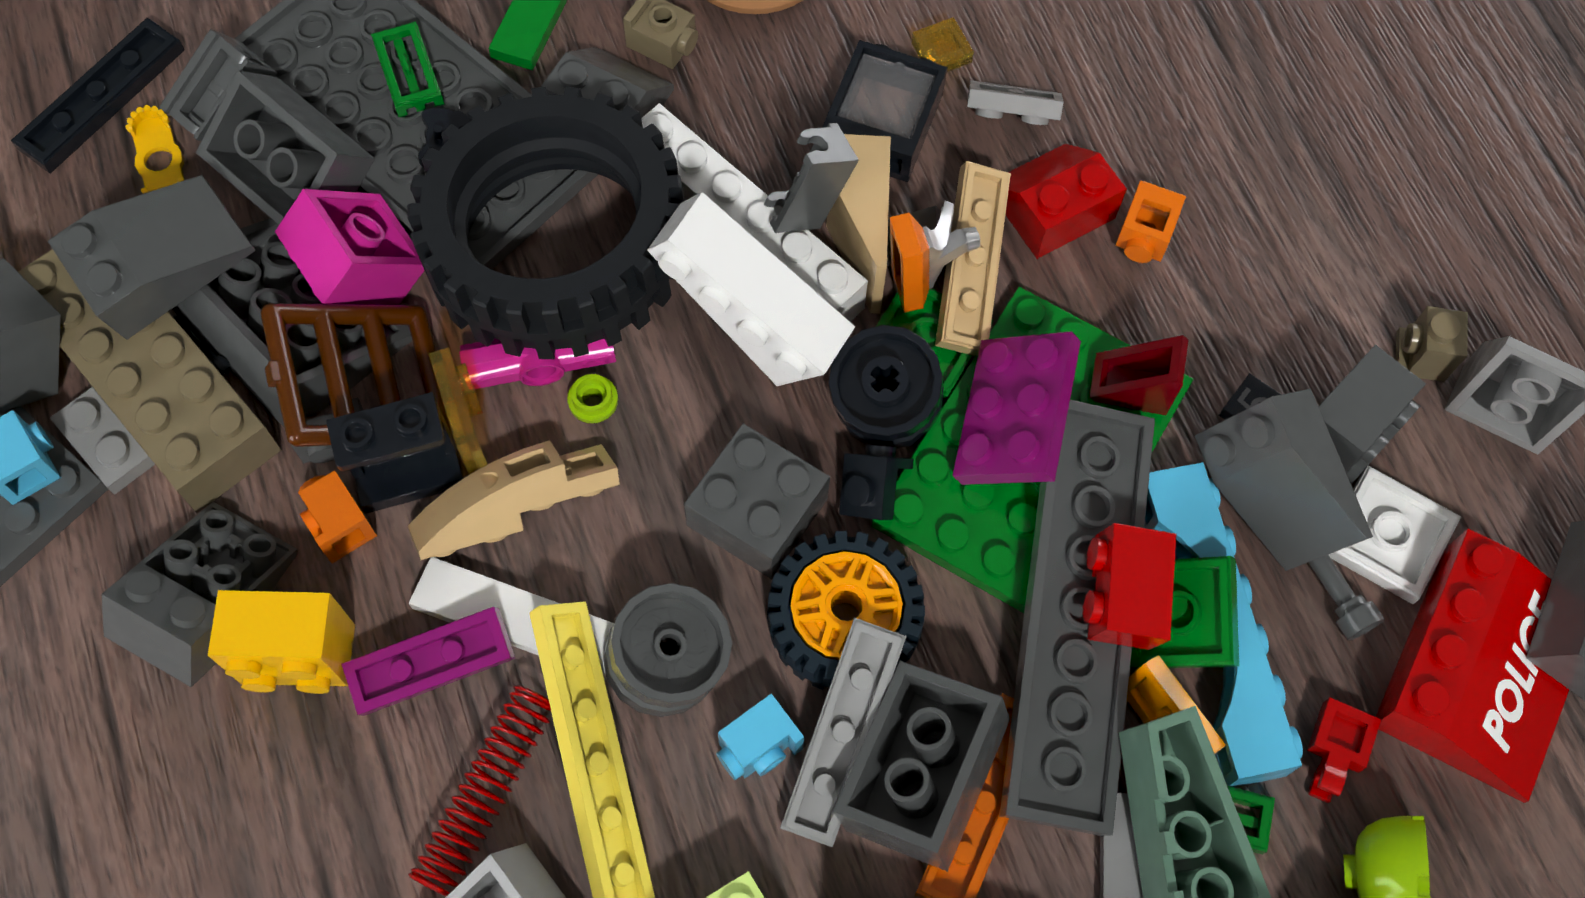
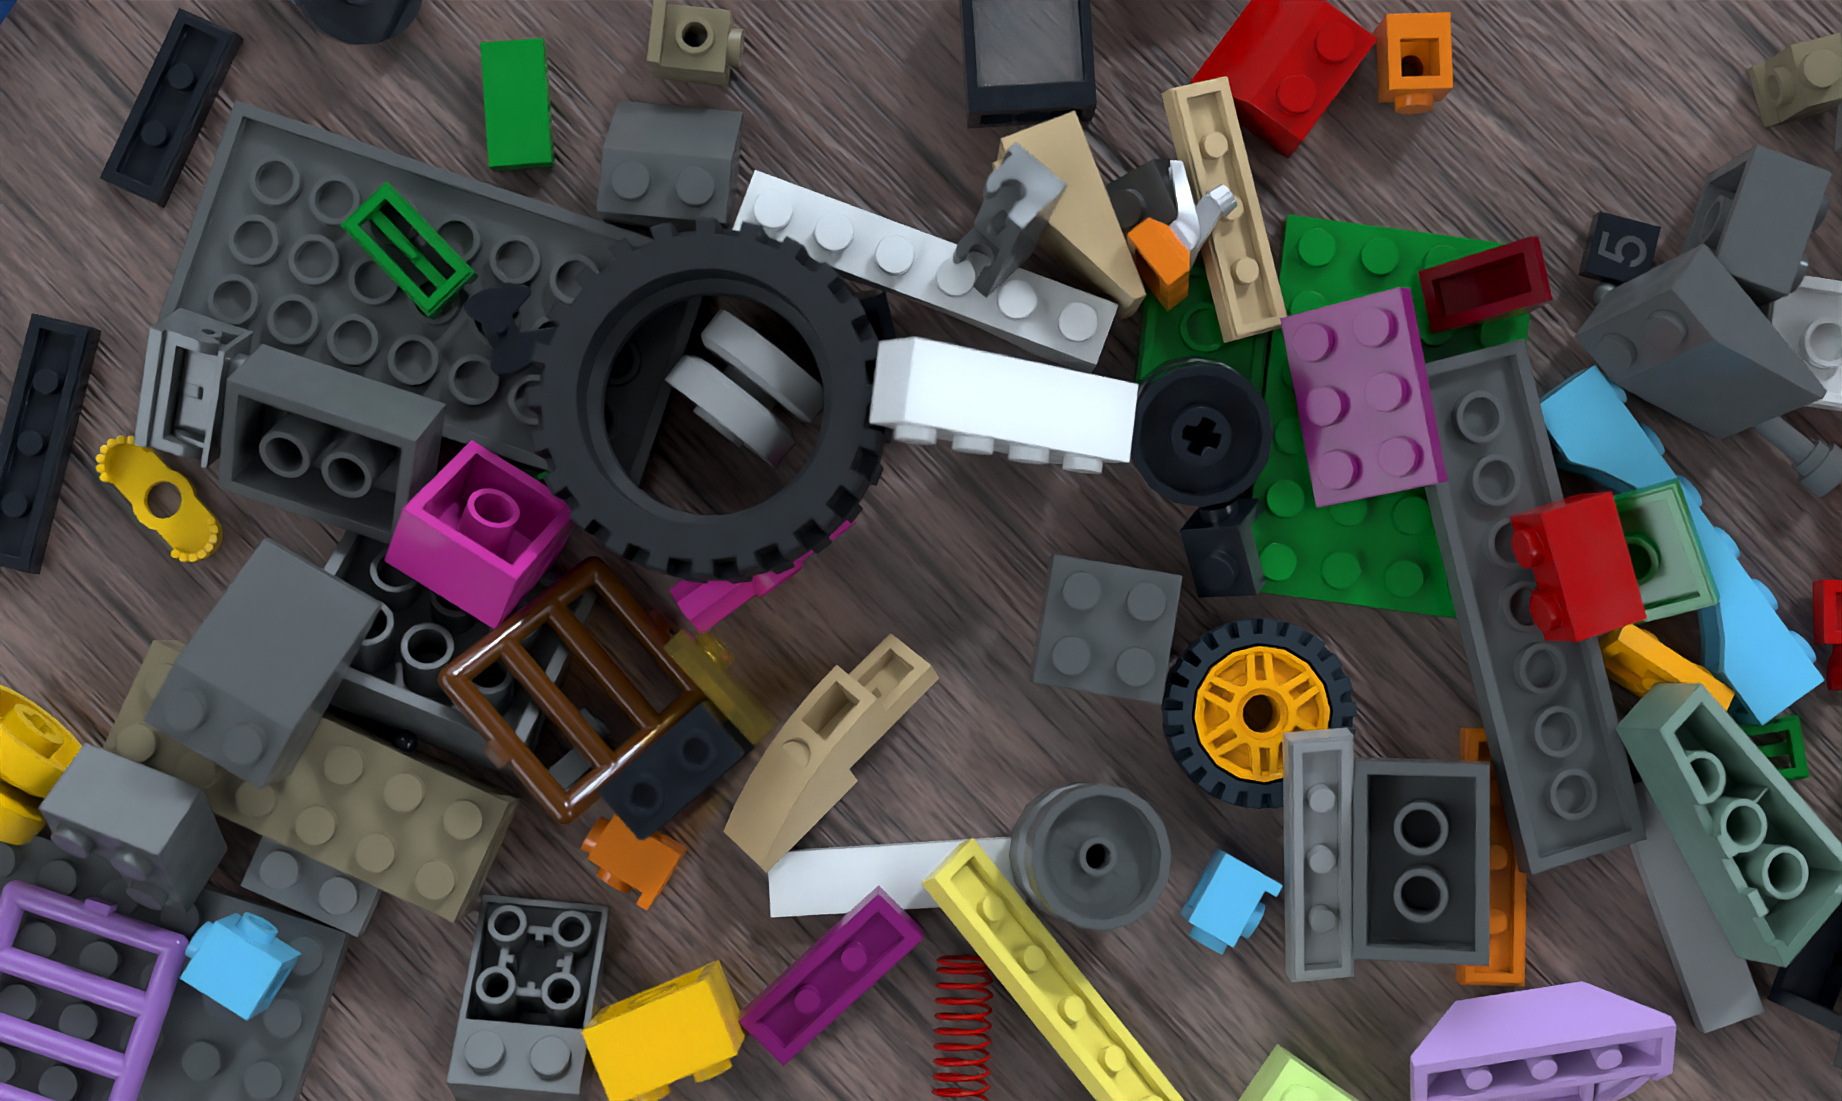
camera: 25 degrees left, 20 degrees up
(578, 231) = (747, 390): none -> light grey wheel
(589, 386) = (837, 565): lime plate -> none

